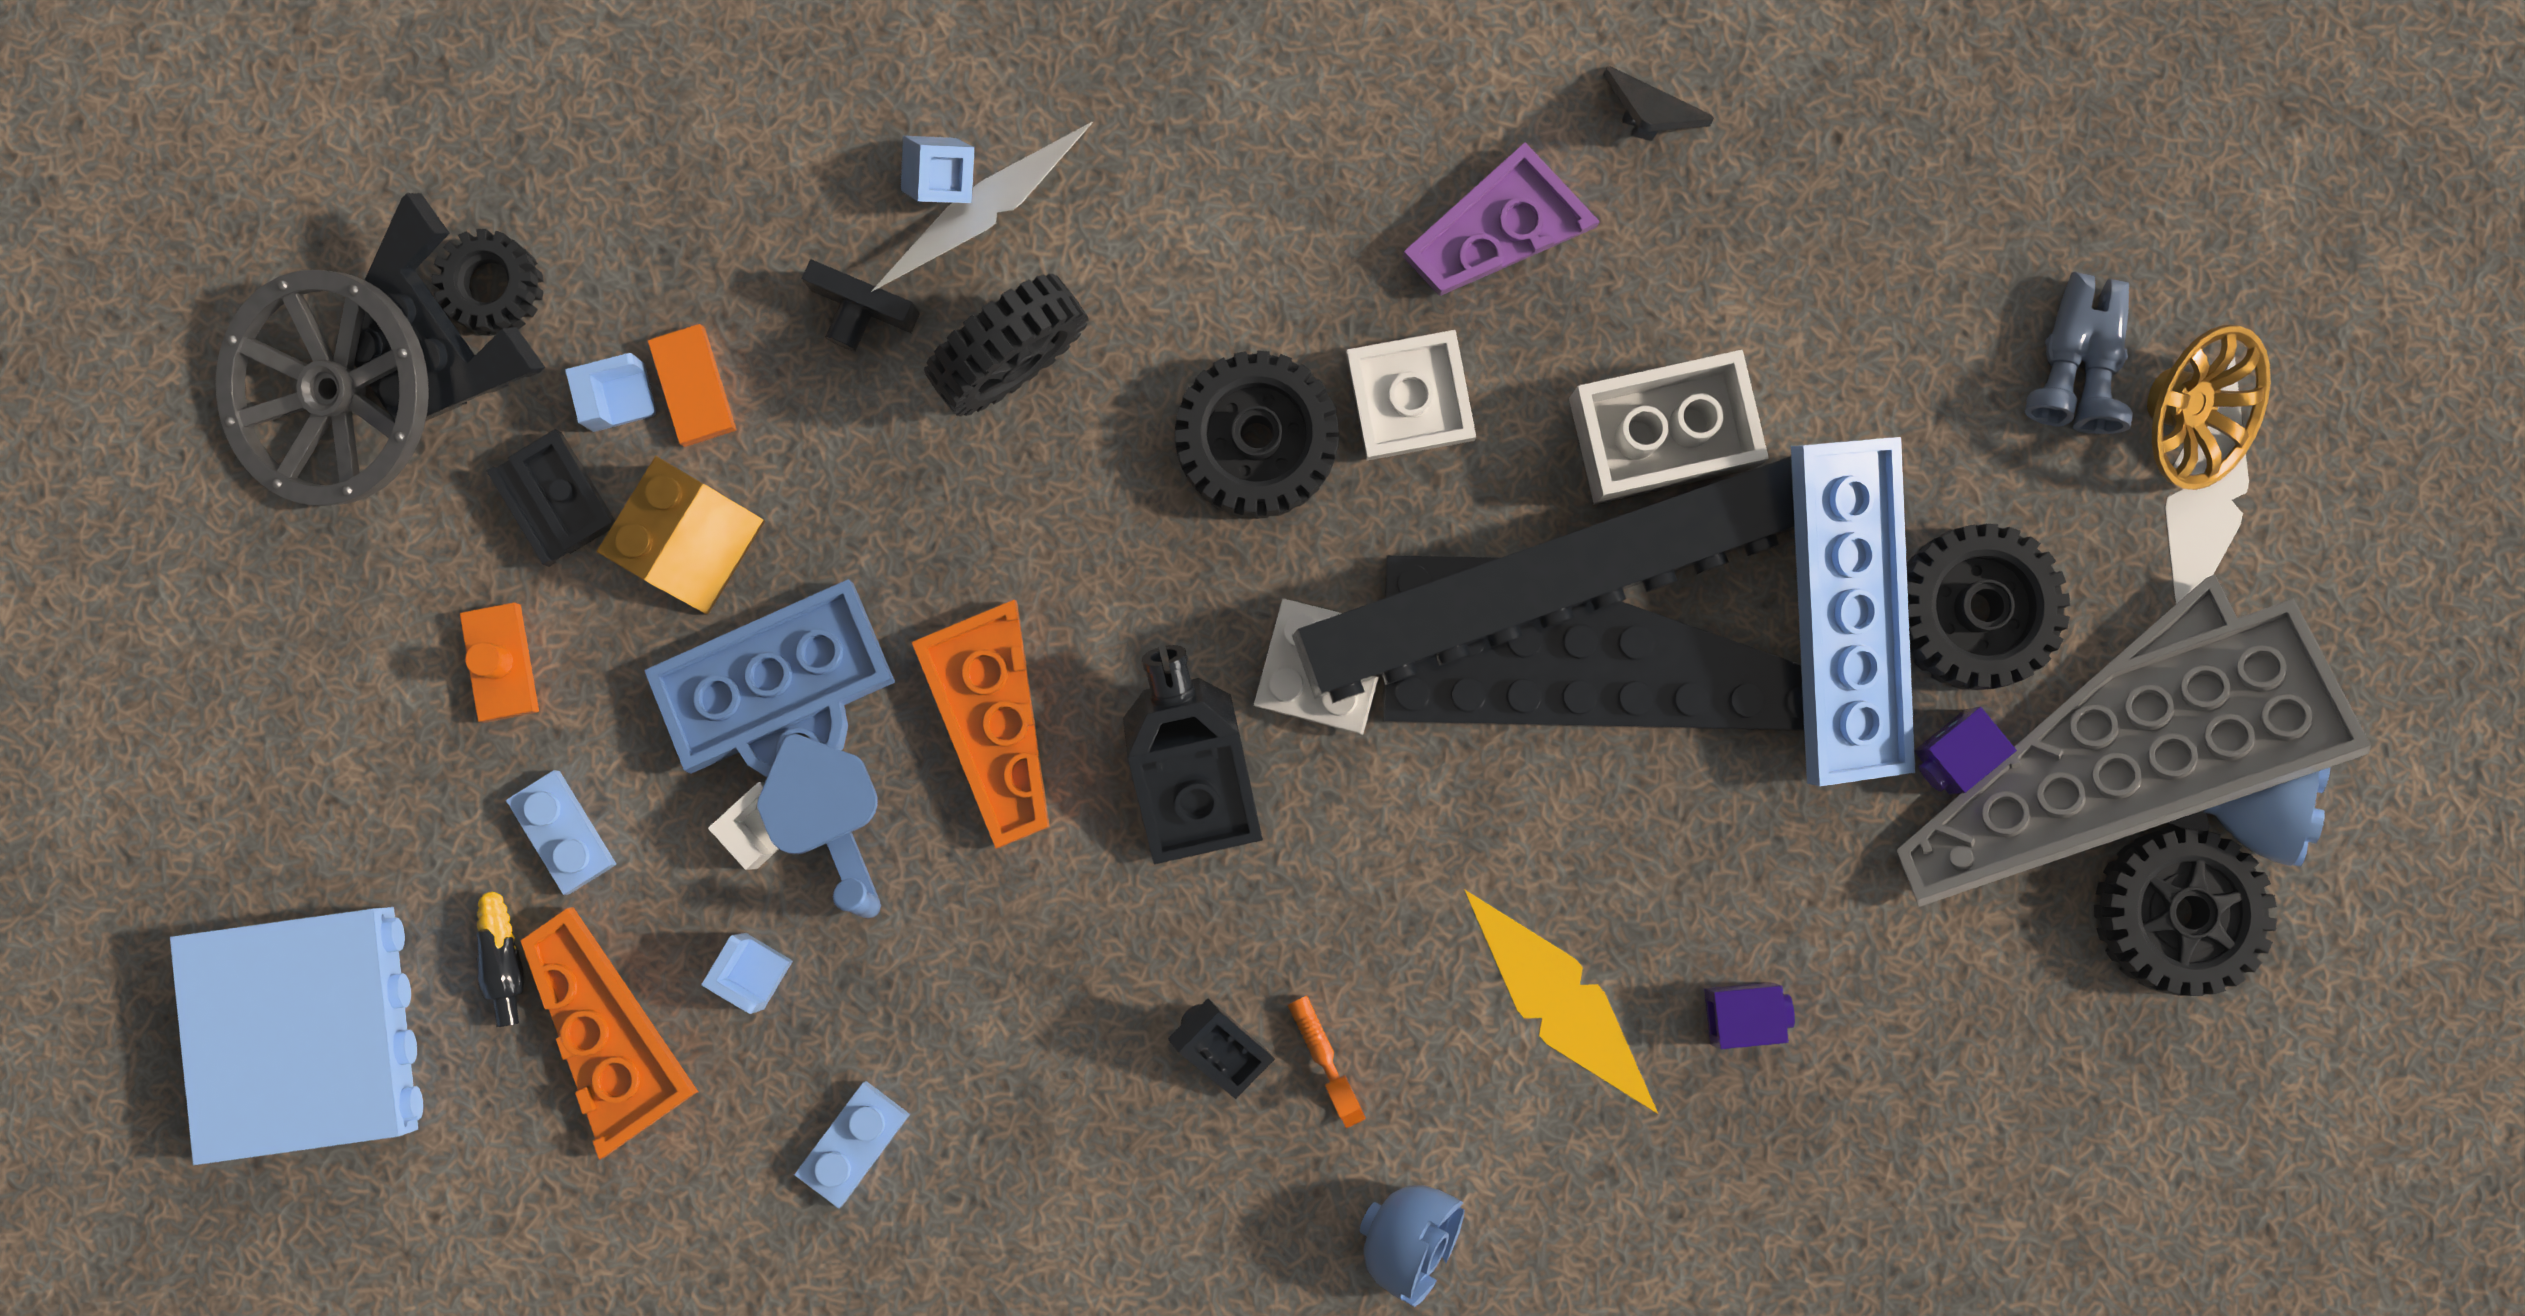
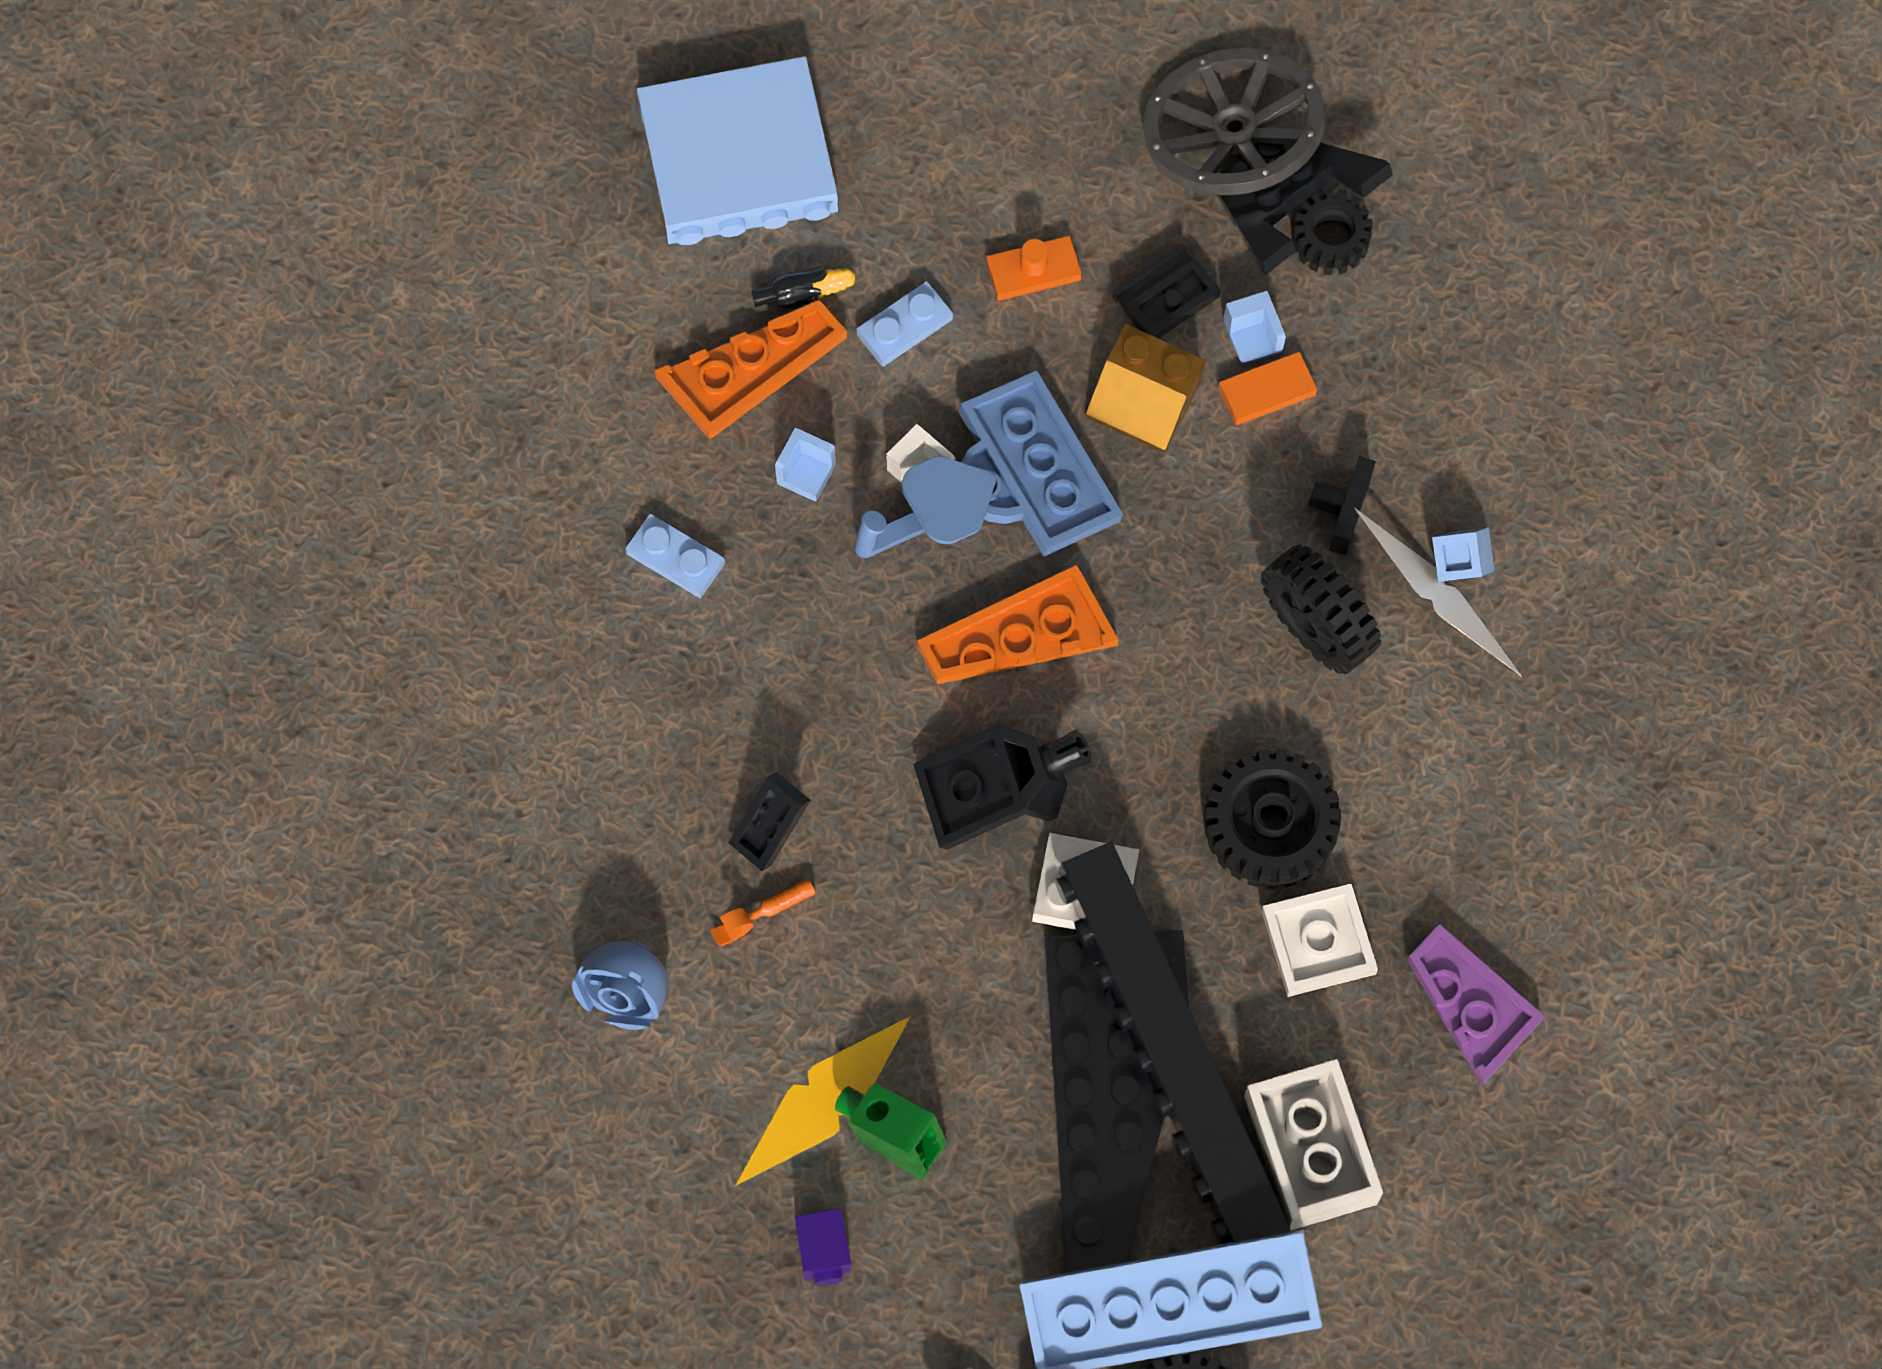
camera: 85 degrees right, 15 degrees down
(1623, 903) = (893, 1127): none -> green torso
(1651, 108) = (1589, 1122): black piece -> none

